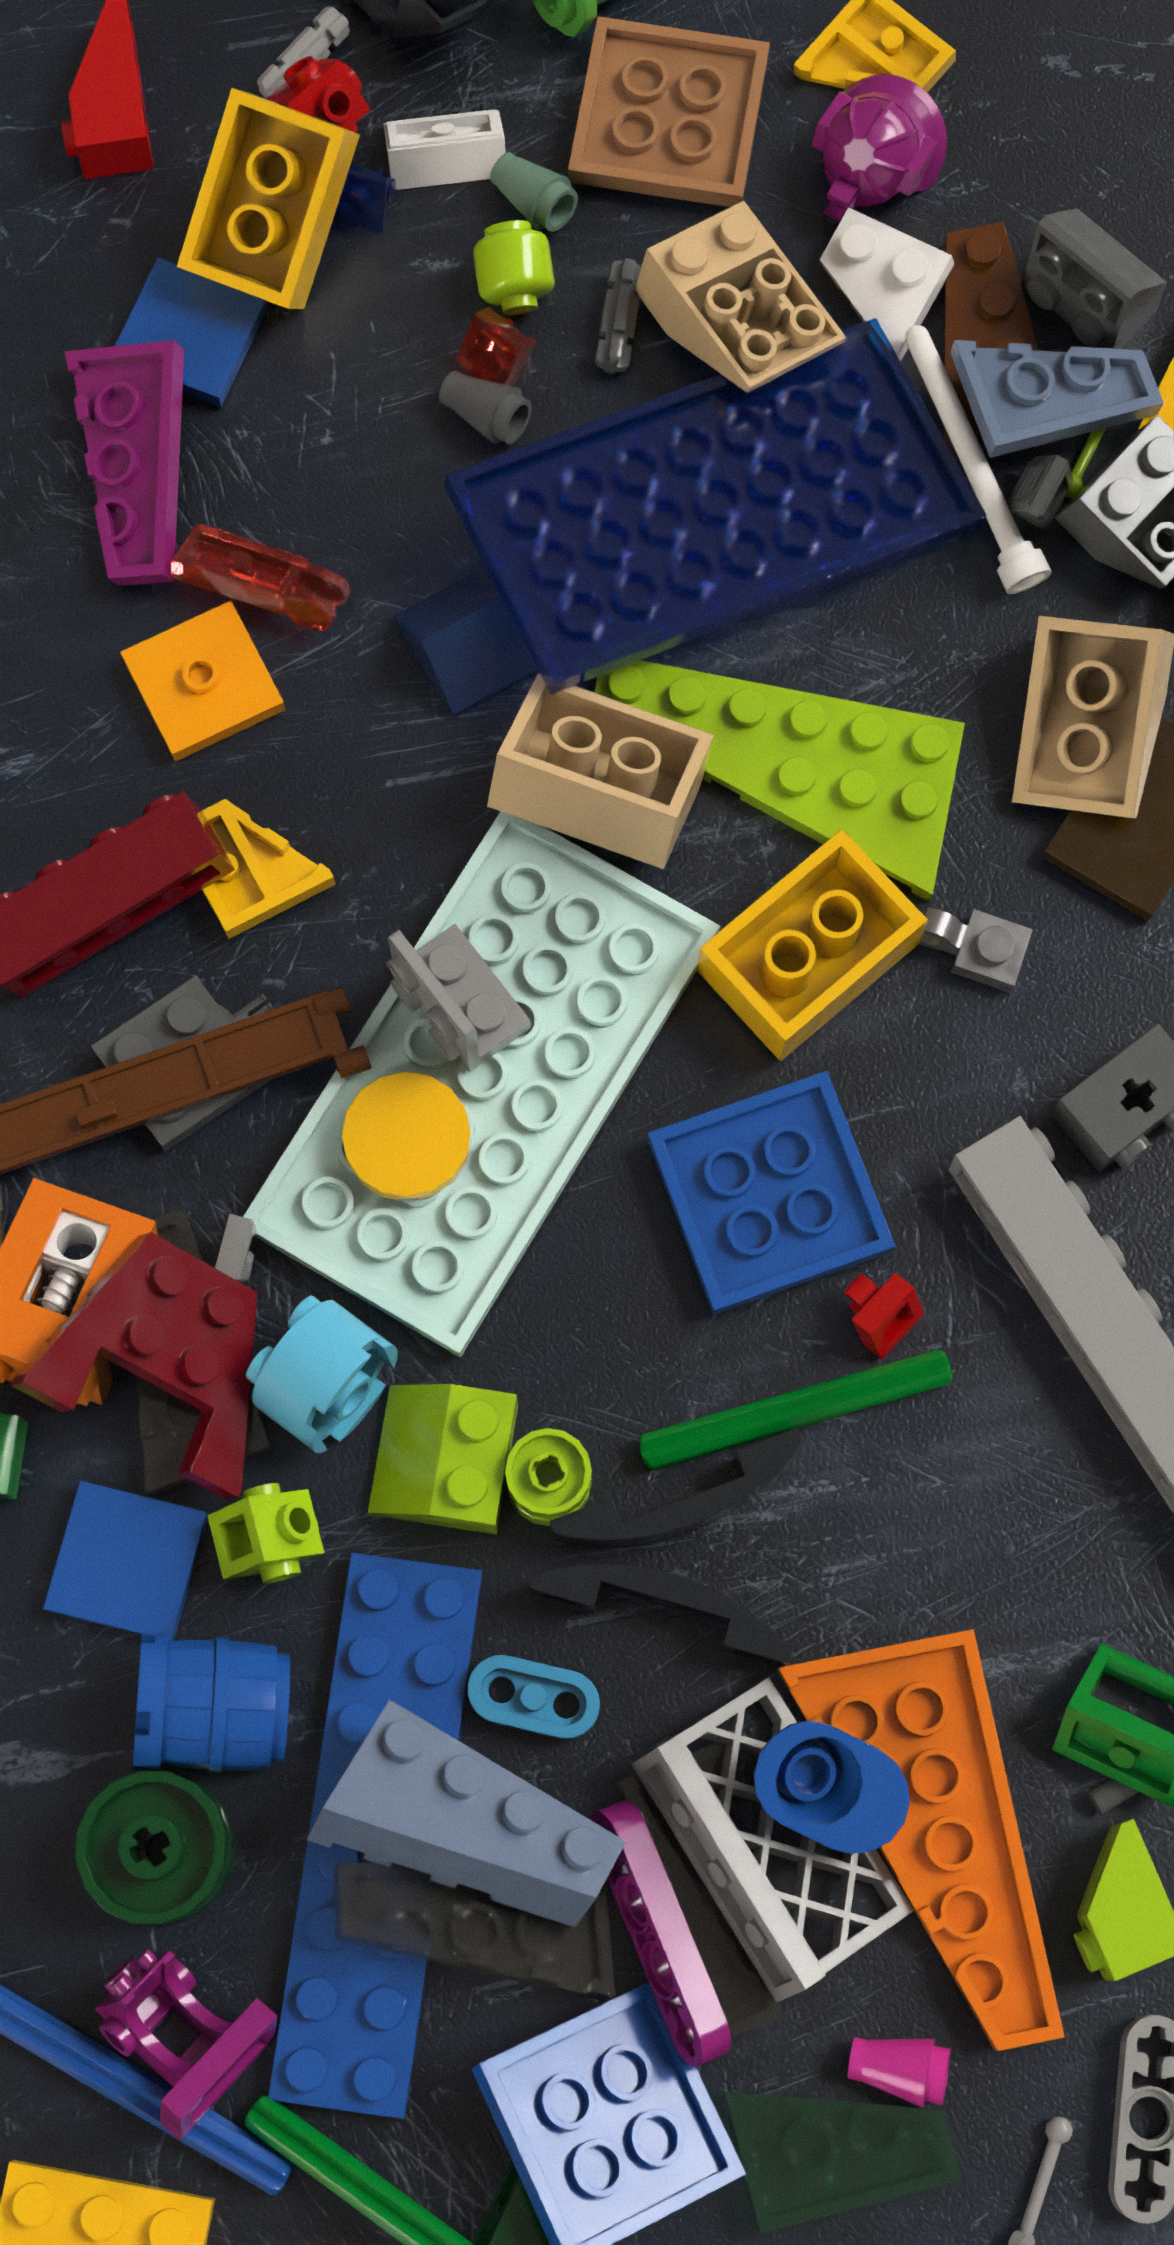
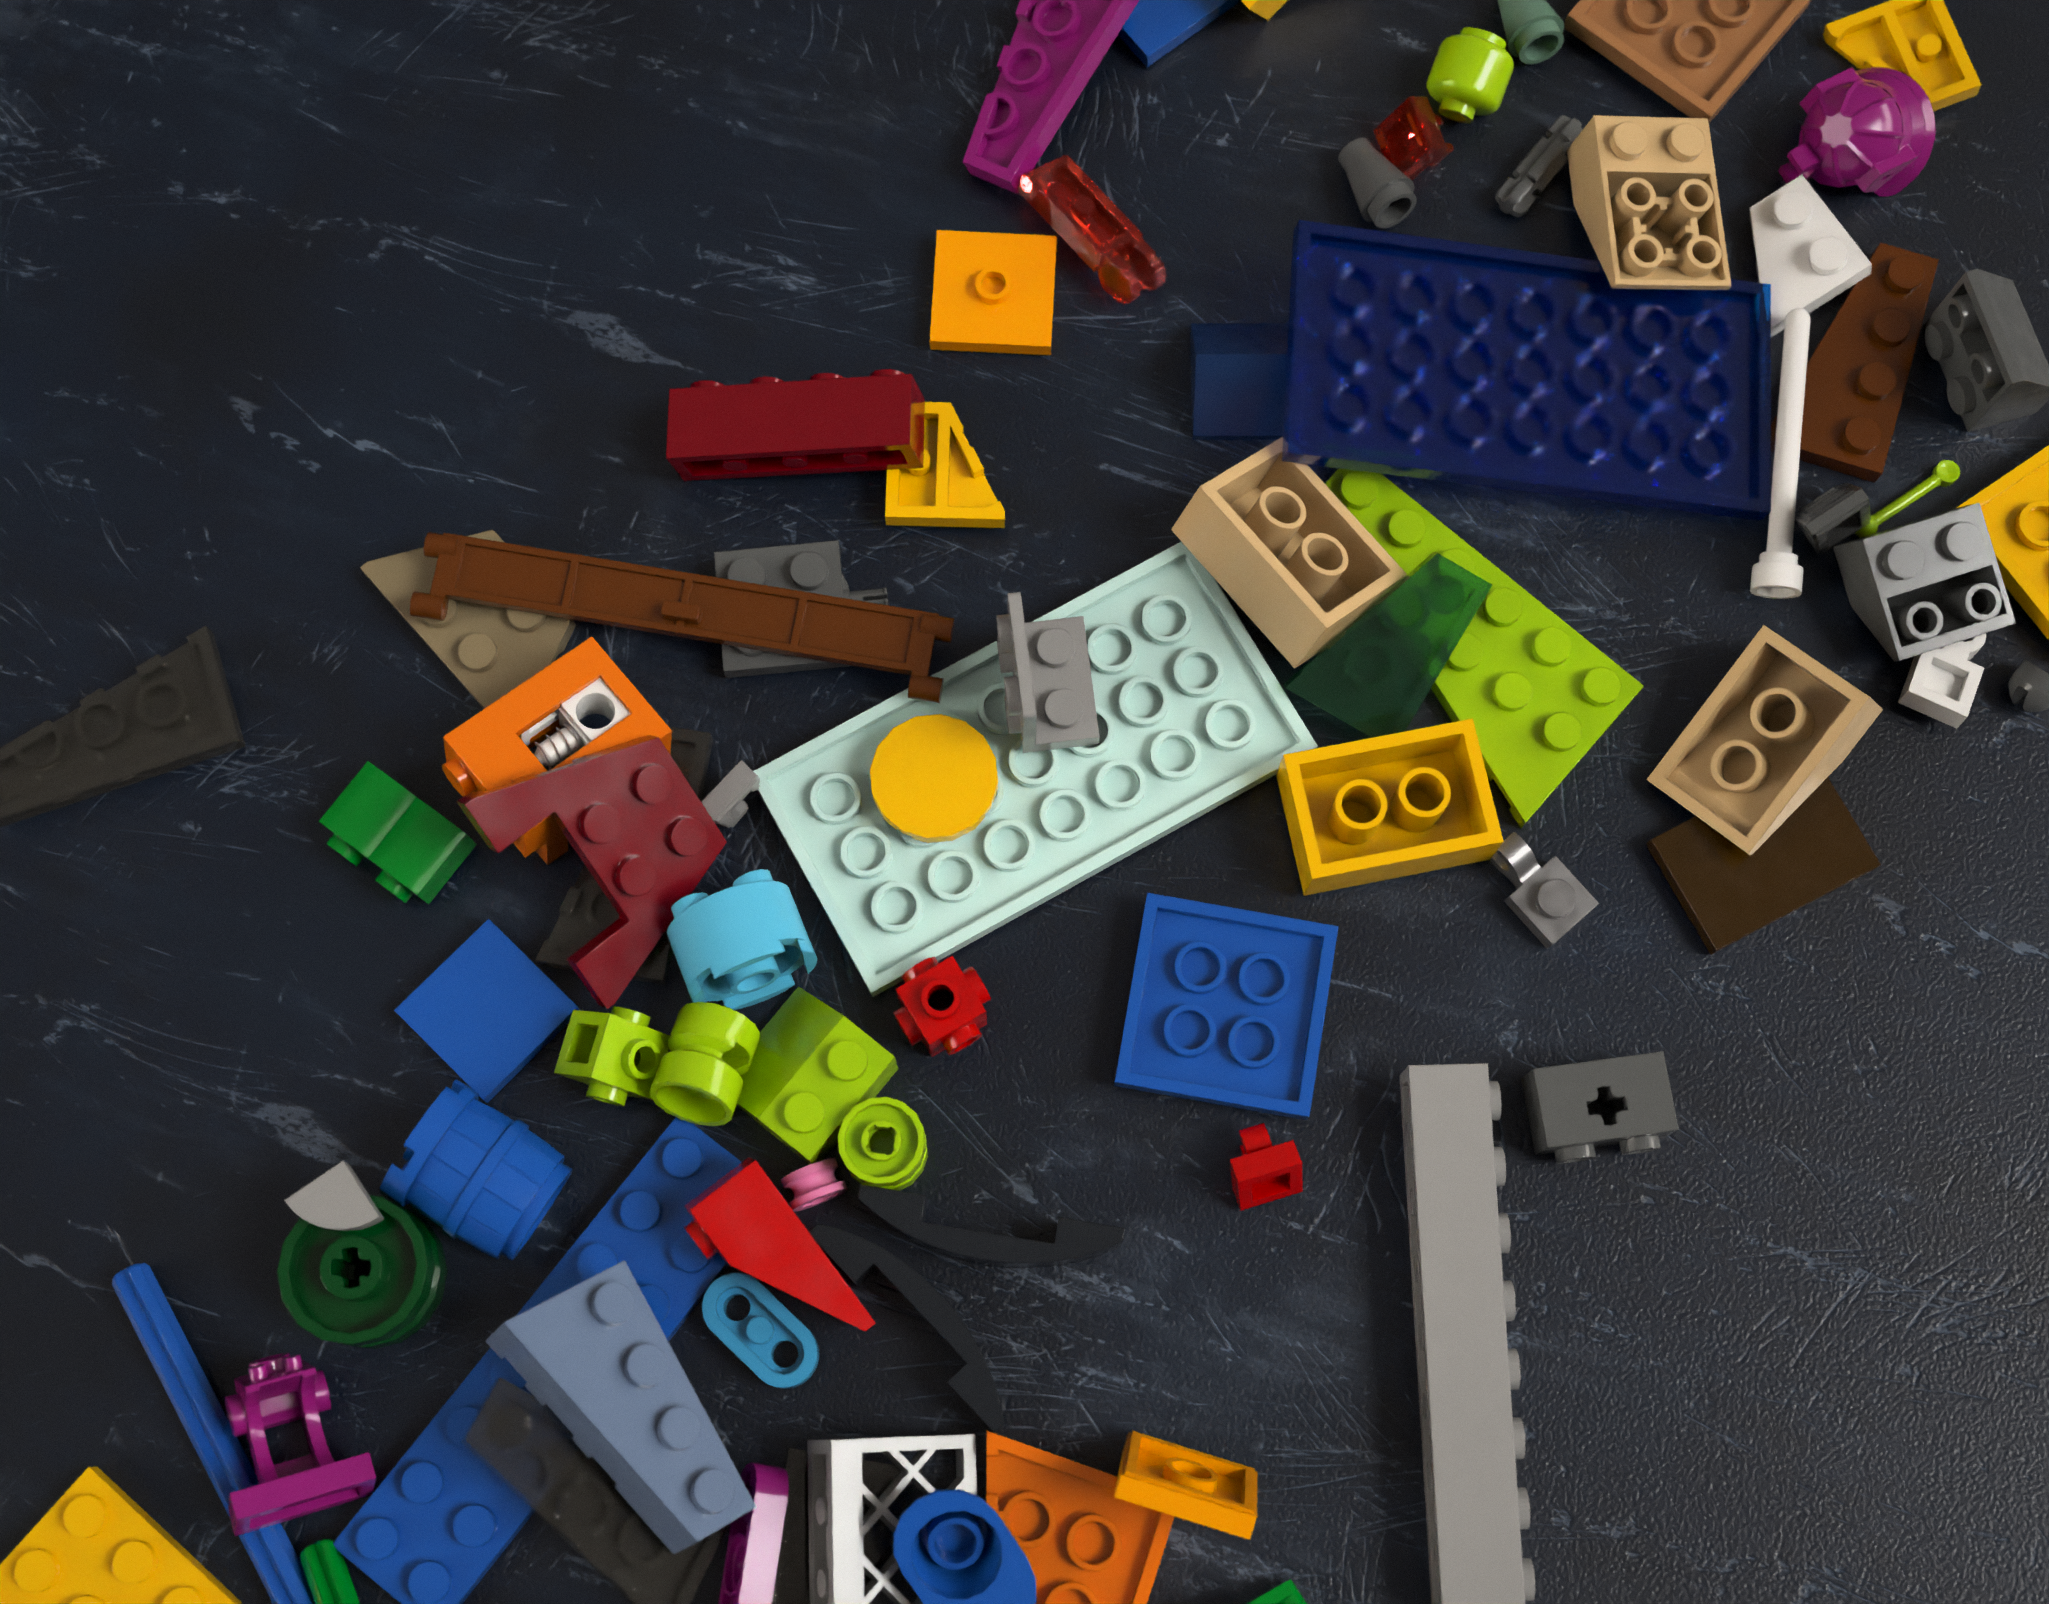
camera: 30 degrees right, 0 degrees up
(103, 1797) = (336, 1201): none -> light grey tile
(353, 1494) = (705, 1065): none -> lime wheel
(489, 1612) = (762, 1236): none -> red slope
(506, 1546) = (814, 1184): none -> bright pink bush
(532, 1352) = (945, 1029): none -> red brick
(740, 806) = (1395, 650): none -> clear green wing
(794, 1409) = (1138, 1210): green axle -> none
(974, 1611) = (1188, 1484): none -> light orange plate
(1048, 396) = (1885, 433): sand blue wing -> none

